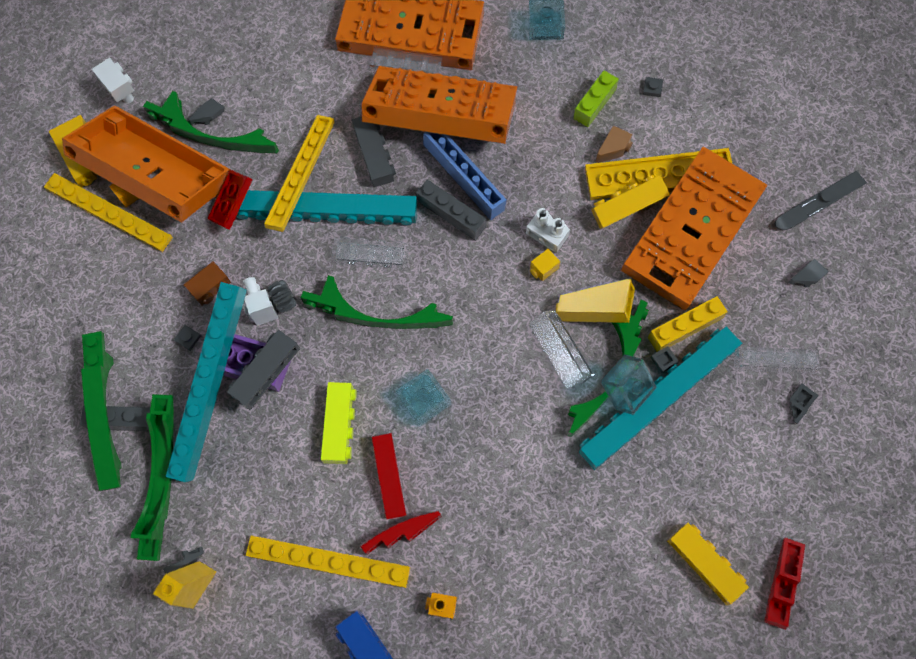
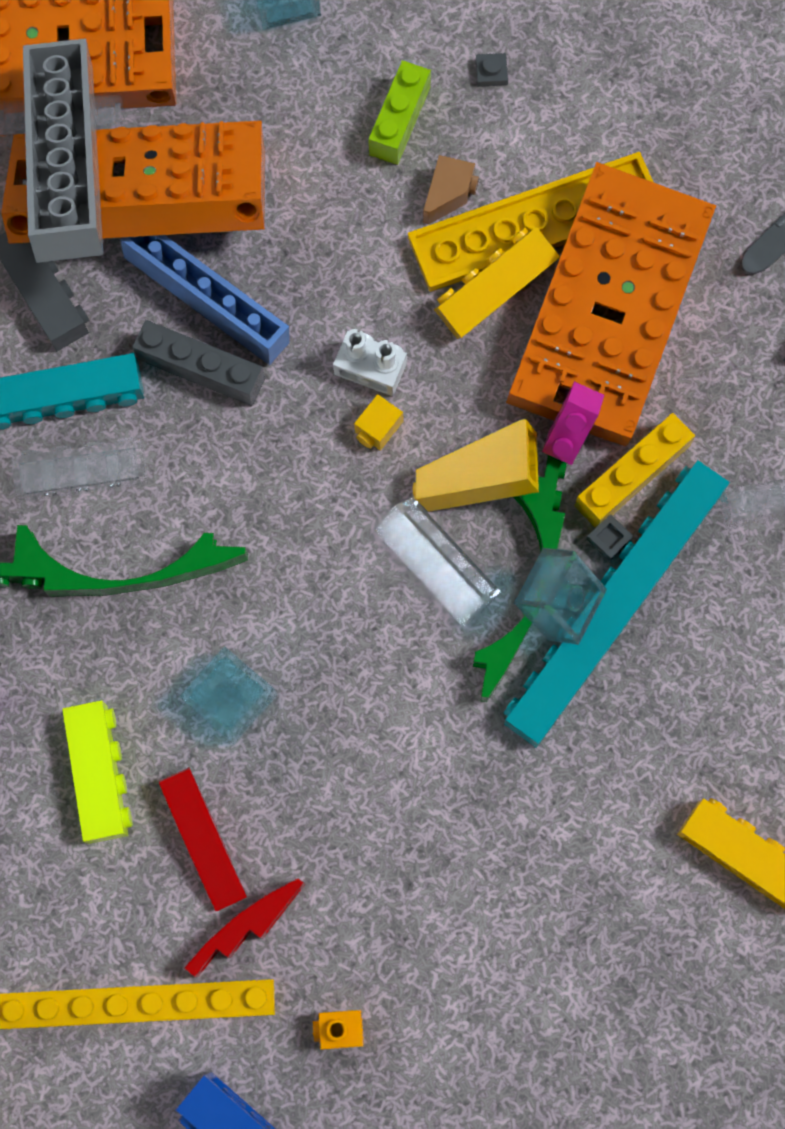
camera: 15 degrees left, 5 degrees up
(402, 77) = (61, 151): none -> light grey brick
(657, 288) = (573, 423): none -> dark pink brick

